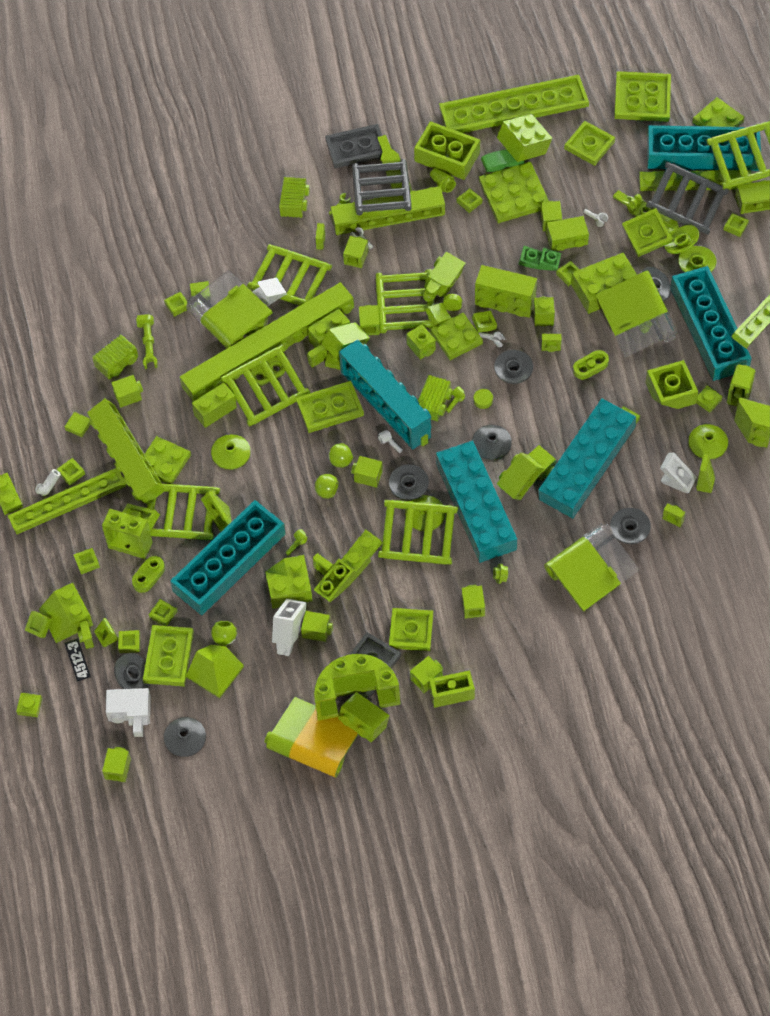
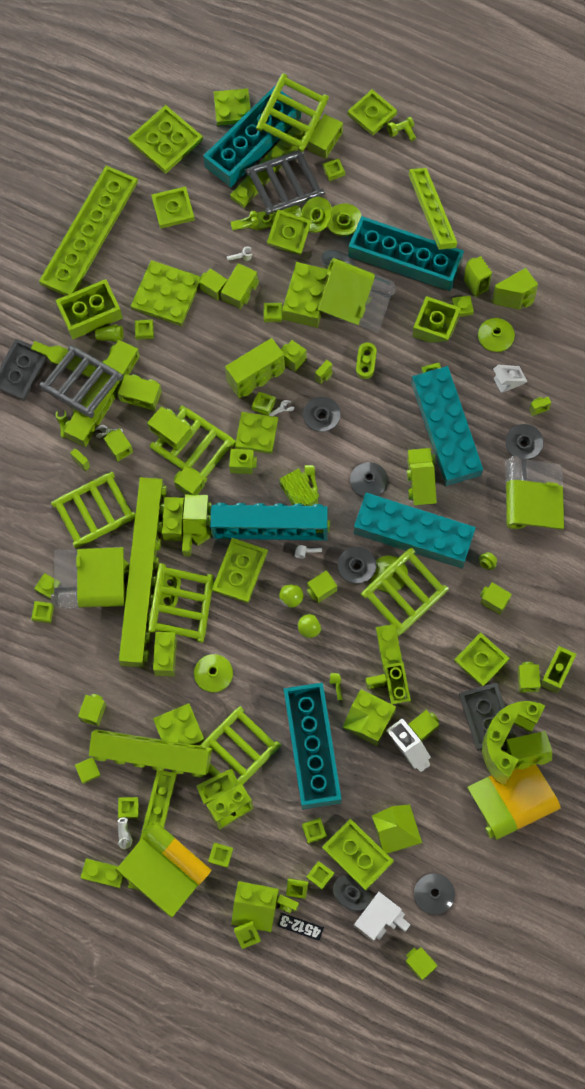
camera: 50 degrees left, 10 degrees up
(29, 705) = (311, 993): lime plate -> none
(41, 527) = (163, 869): none -> lime door
(115, 357) = (52, 695): lime brick -> none
(146, 321) = (40, 647): lime piece -> none
(149, 573) = (270, 816): lime plate -> none
(217, 509) = (264, 722): lime slope -> none
(223, 633) = (373, 798): lime piece -> none
(269, 291) = (98, 535): white slope -> none
(293, 197) = (25, 451): lime brick -> none
(399, 272) = (170, 428): none -> lime brick
(413, 233) = (139, 392): none -> lime brick
(437, 314) = (228, 430): lime tile -> none
(443, 276) = (199, 401): lime hinge -> none
(452, 302) = (226, 412): lime tile -> none
(483, 398) = (328, 457): lime tile -> none
(498, 161) = (131, 278): bright green slope -> none
(524, 137) = (129, 247): lime brick -> none
(541, 260) = (244, 321): bright green slope -> none
(706, 475) = (527, 359): lime slope -> none

